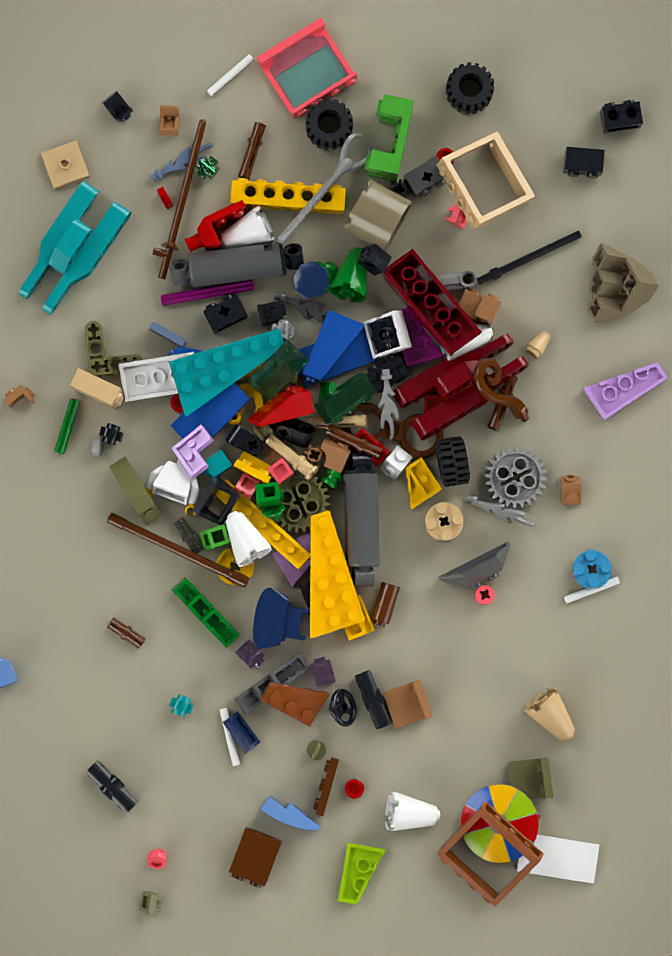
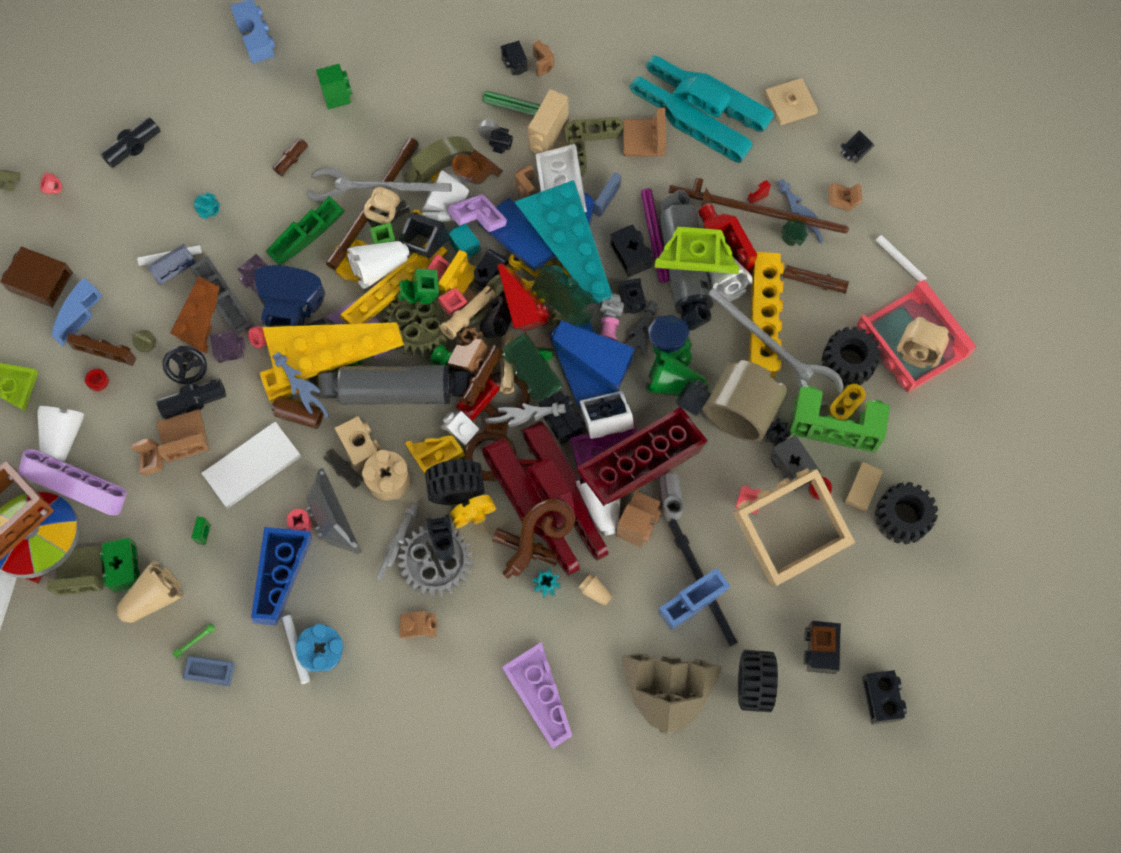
camera: 95 degrees right, 15 degrees down
(19, 423) = (514, 57): none -> black brick
(55, 593) = (334, 86): none -> green brick
(105, 300) = (645, 136): none -> medium nougat bracket
(148, 453) = (474, 168): none -> reddish brown plate
(158, 578) = (344, 184): none -> light grey piece
(159, 412) = (523, 183): none -> medium nougat bracket
(180, 539) = (384, 200): none -> tan piece
(240, 251) = (697, 251): none -> lime wing
(304, 334) = (609, 327): none -> bright pink bush
(313, 645) = (257, 337): none -> coral tile
(319, 62) = (923, 343): none -> tan brick
(367, 596) = (305, 387): none -> sand blue piece
(370, 131) = (846, 404): none -> yellow plate
(425, 547) = (350, 433): none -> tan brick
(429, 729) = (149, 460): none -> medium nougat bracket
(432, 641) = (251, 465): none -> white tile
(435, 561) = (343, 468): none -> clear smoke pin
(443, 121) = (864, 486): none -> tan tile
(455, 792) = (72, 482): none -> lavender beam
(477, 446) = (473, 512): none -> yellow plate
(494, 677) = (201, 530): none -> green tile
(499, 470) = (441, 533): none -> black piece
(530, 608) = (277, 570): none -> blue wedge
(533, 390) = (544, 588): none -> teal gear
(534, 736) = (128, 572): none -> green brick
(545, 263) = (693, 599): none -> medium blue slope
(576, 663) = (209, 629): none -> bright green hinge
(581, 161) = (823, 639): none -> reddish brown tile
(611, 660) = (208, 670): none -> sand blue tile
(614, 214) = (757, 681): none -> black tyre

